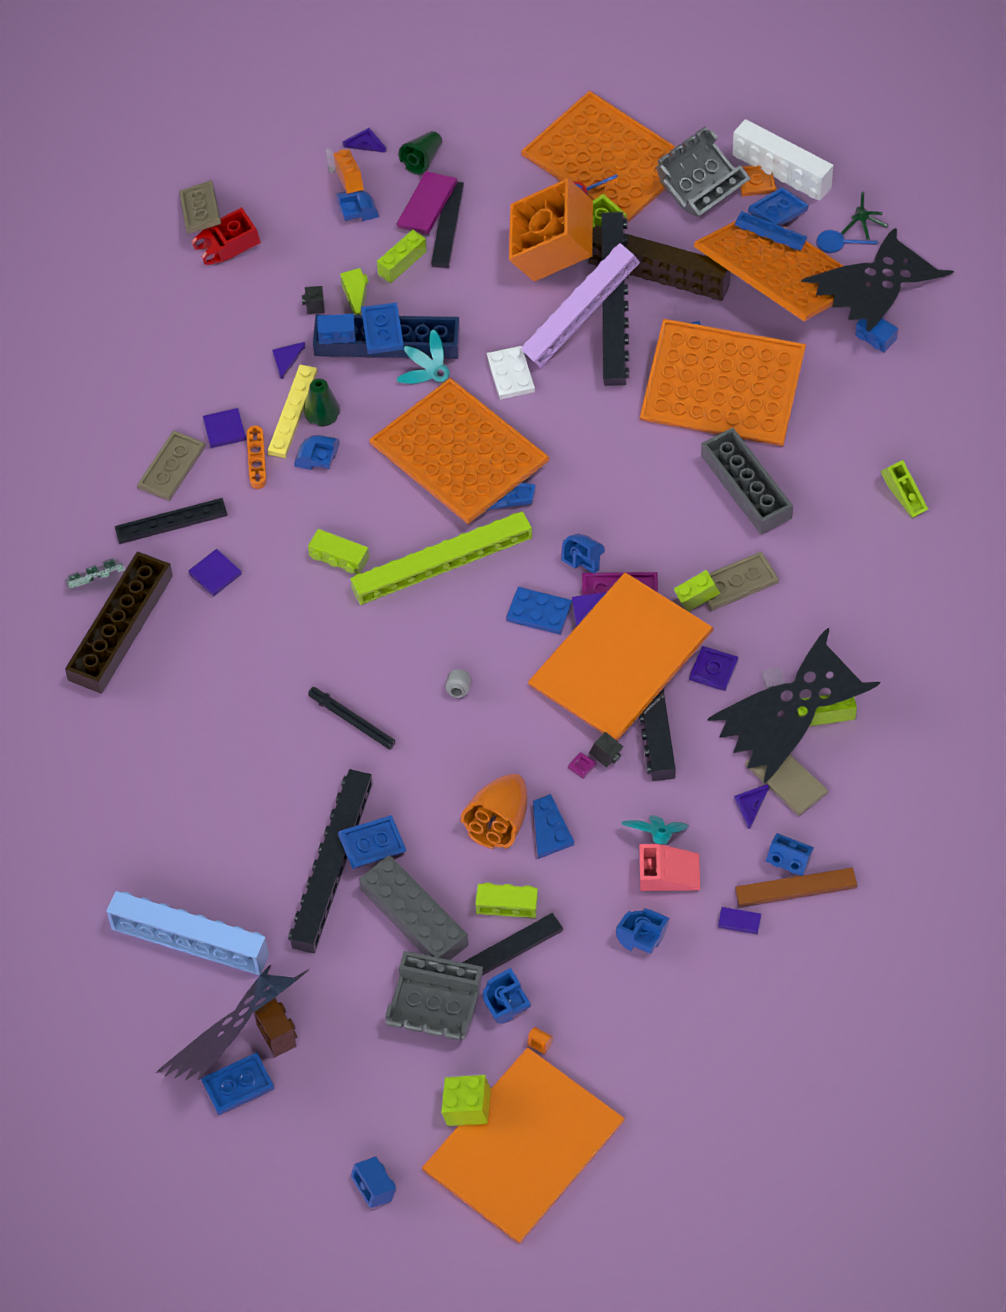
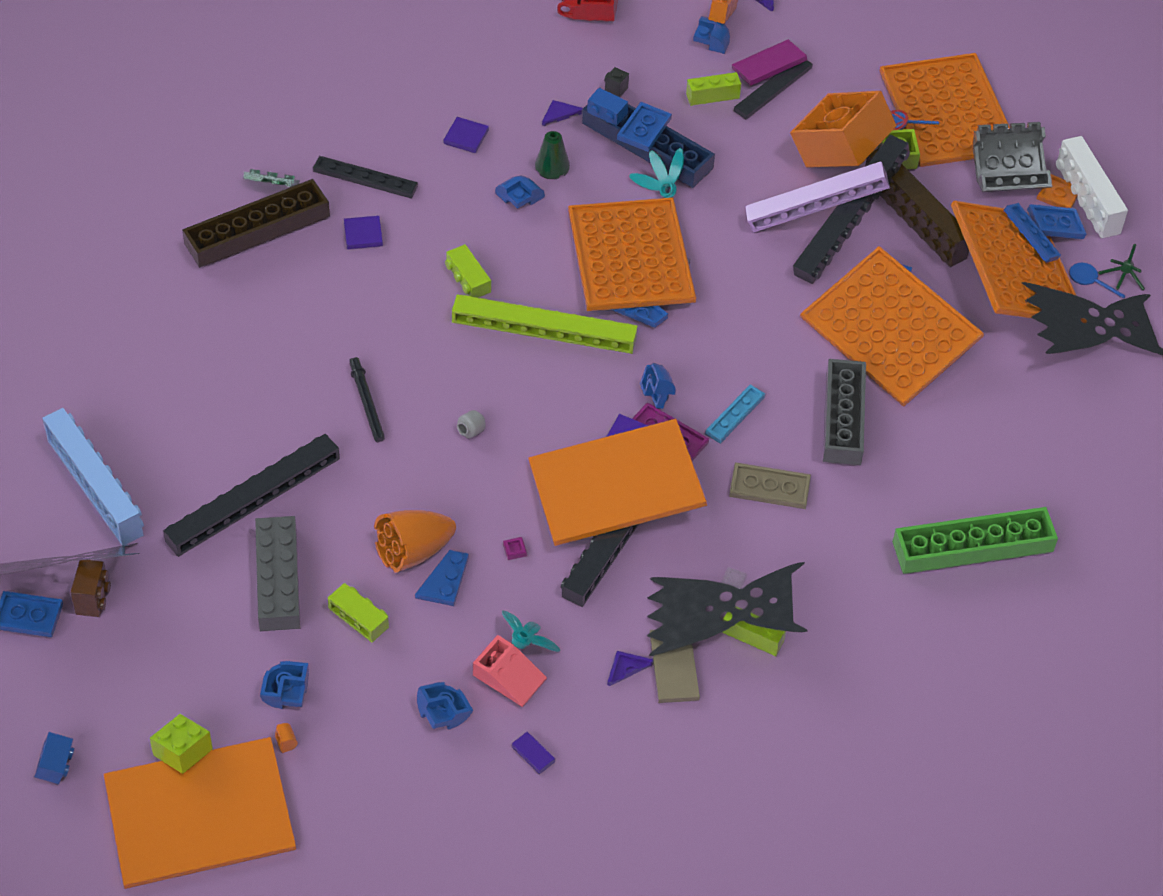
camera: 30 degrees right, 5 degrees down
(171, 465) = (402, 138): dark tan tile -> none
(256, 457) = (467, 167): orange beam -> none
(292, 412) = (523, 155): light yellow plate -> none
(355, 289) = (657, 90): lime slope -> none
(372, 842) = (292, 498): blue plate -> none
(420, 152) = (796, 22): dark green cone -> none
(435, 996) = (232, 648): dark grey slope -> none
(510, 372) = (724, 222): white plate -> none
(516, 944) = (324, 650): black tile -> none
(539, 610) = (587, 410): blue plate -> none
(606, 750) = (541, 546): pearl dark grey brick -> none
(659, 537) = (735, 414): none -> dark azure tile
(697, 590) = (726, 470): lime brick -> none
(713, 668) = (690, 541): dark purple tile -> none
(789, 854) = (618, 725): blue brick -> none
(796, 887) = (604, 757): dark orange tile -> none
(880, 337) = (1061, 366): blue brick -> none
(904, 488) = (977, 493): lime slope -> none
(931, 525) = (974, 540): none -> bright green brick

